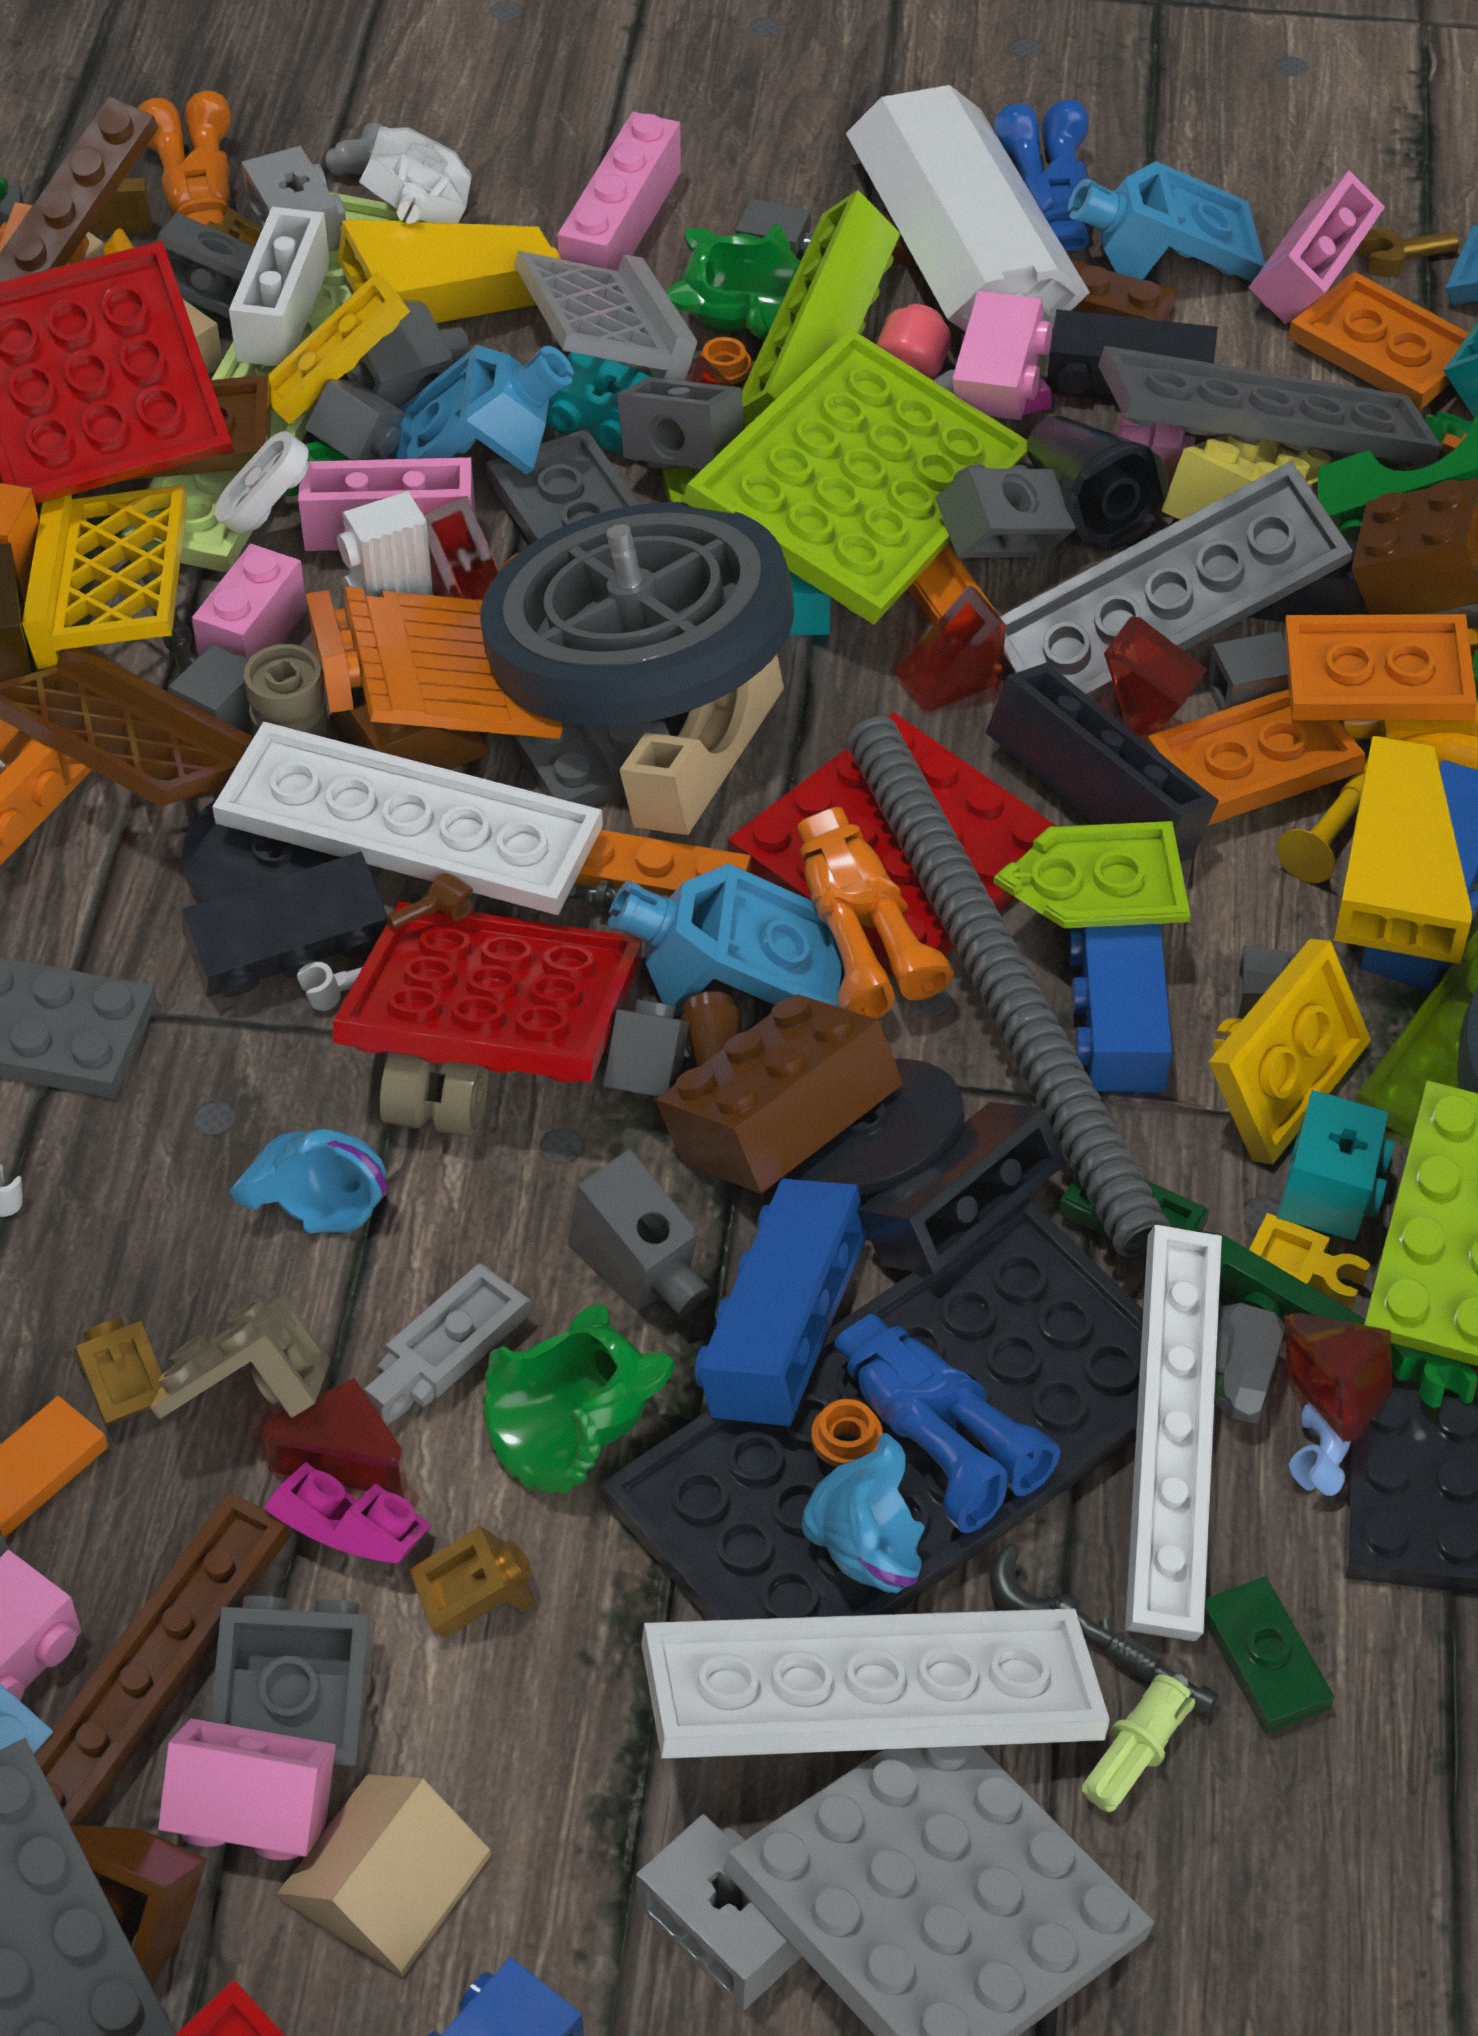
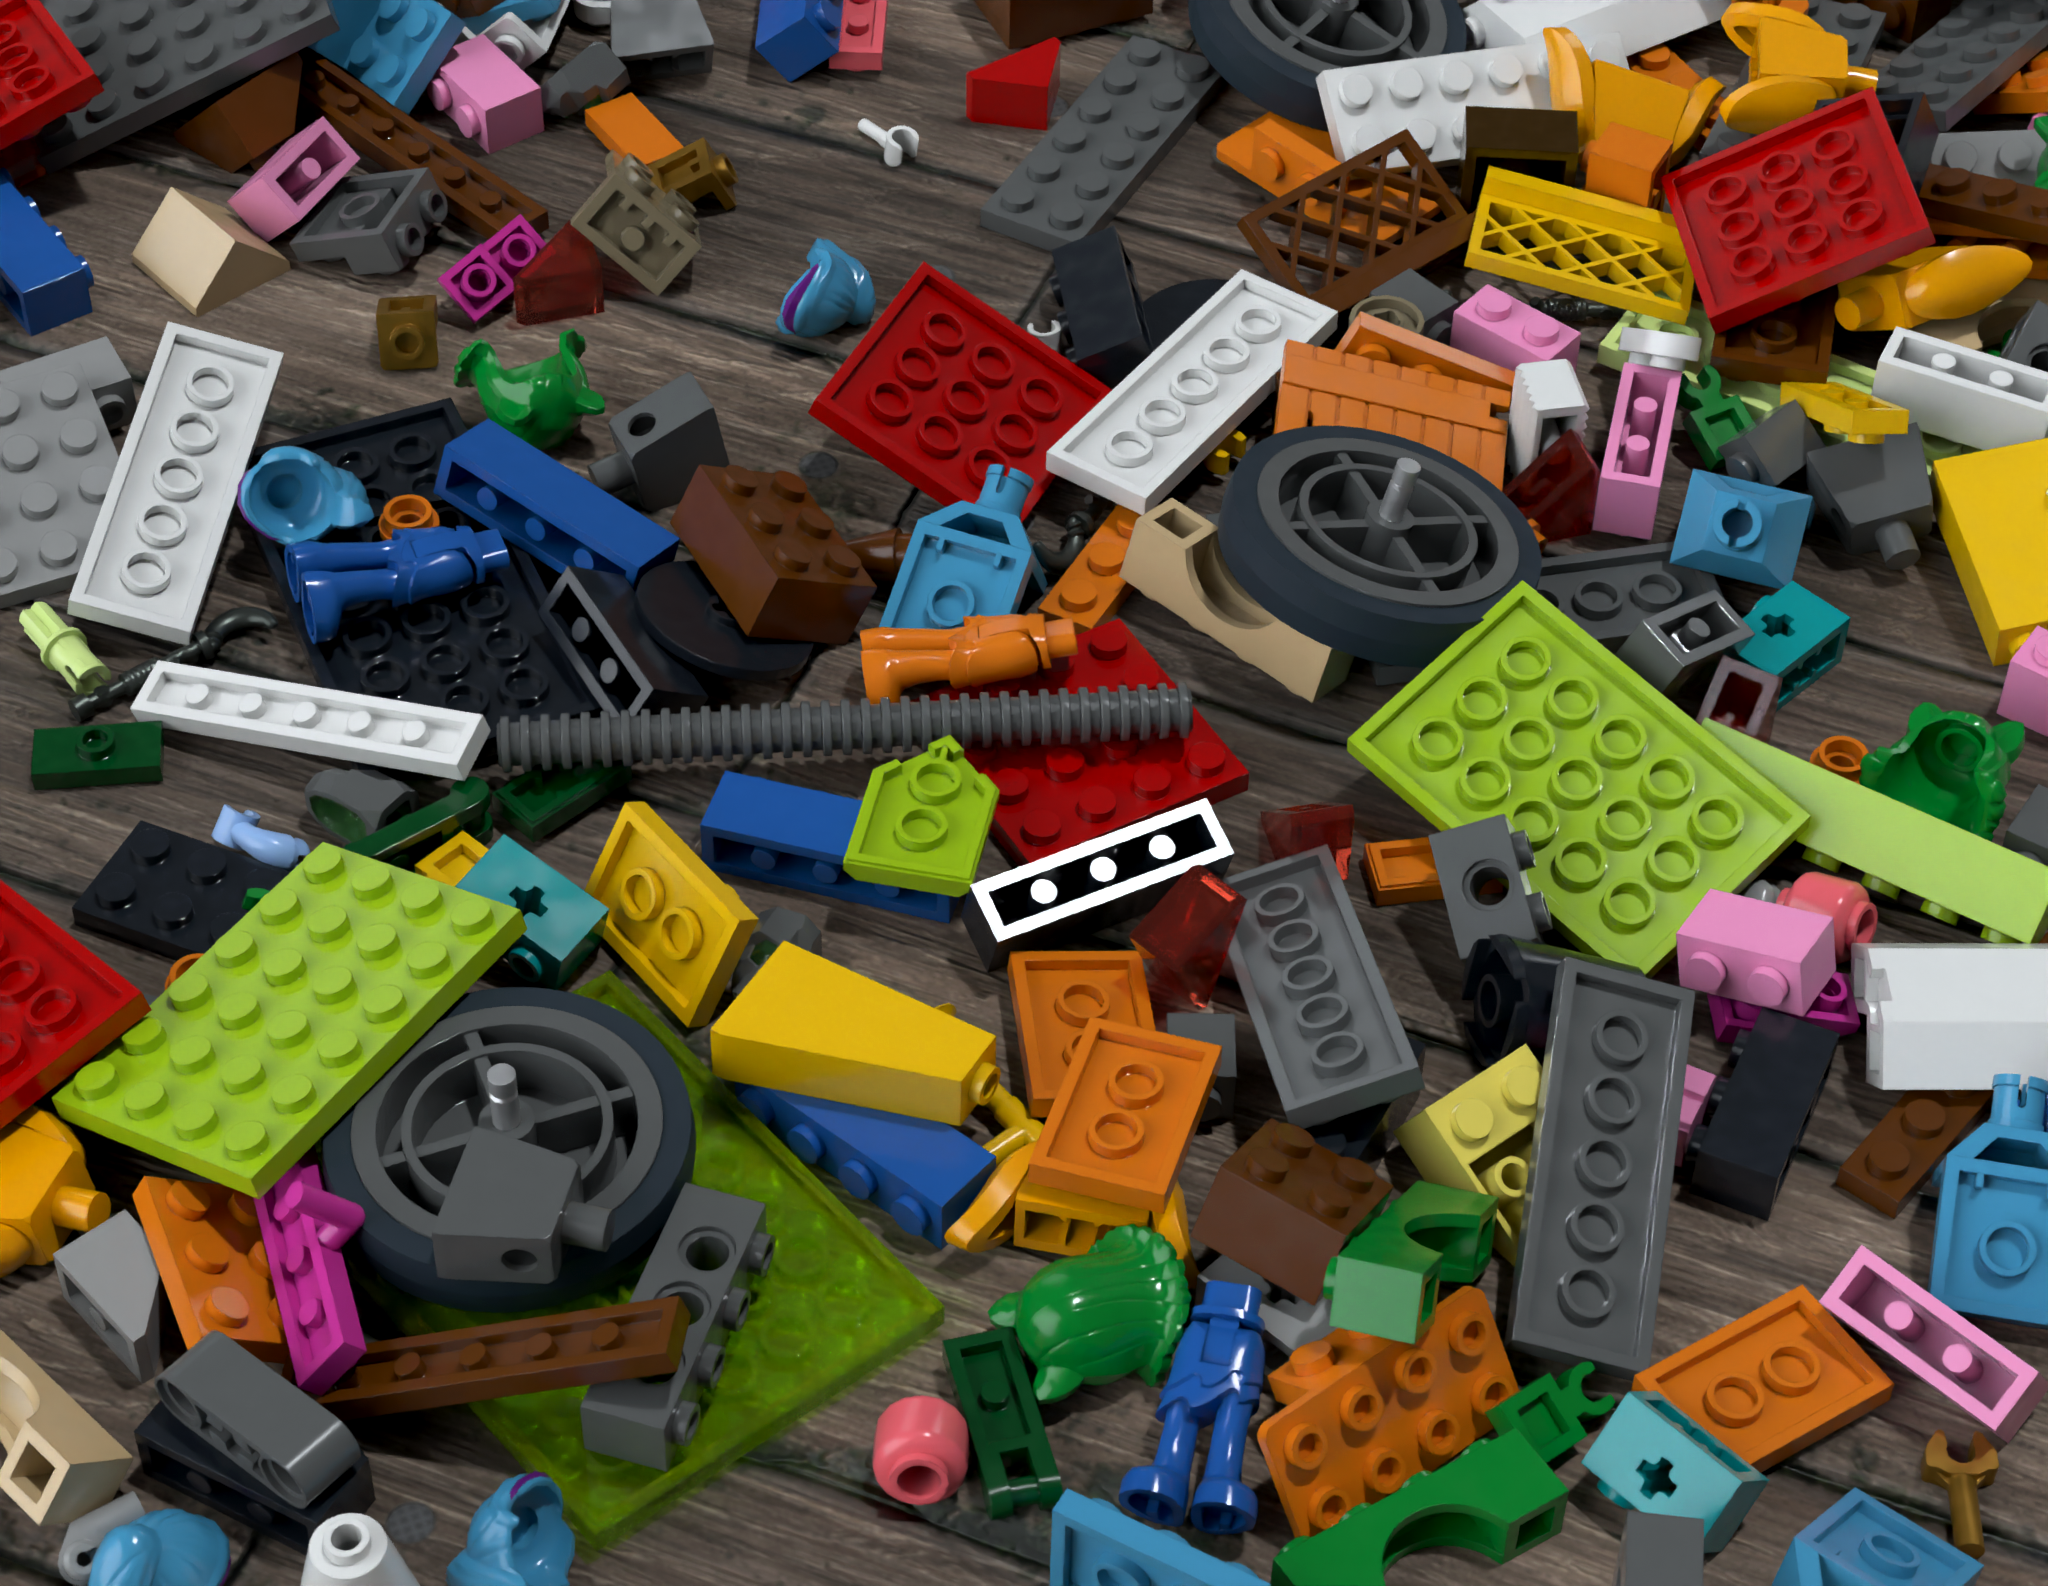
camera: 105 degrees right, 5 degrees down
(445, 894) = (1086, 394): reddish brown hand -> none
(446, 1342) = (631, 344): light grey hinge -> none
(610, 312) = (1884, 674): light grey fence -> none
(646, 1049) = (864, 494): dark grey brick -> none
(1339, 1369) = (289, 822): clear red slope -> none

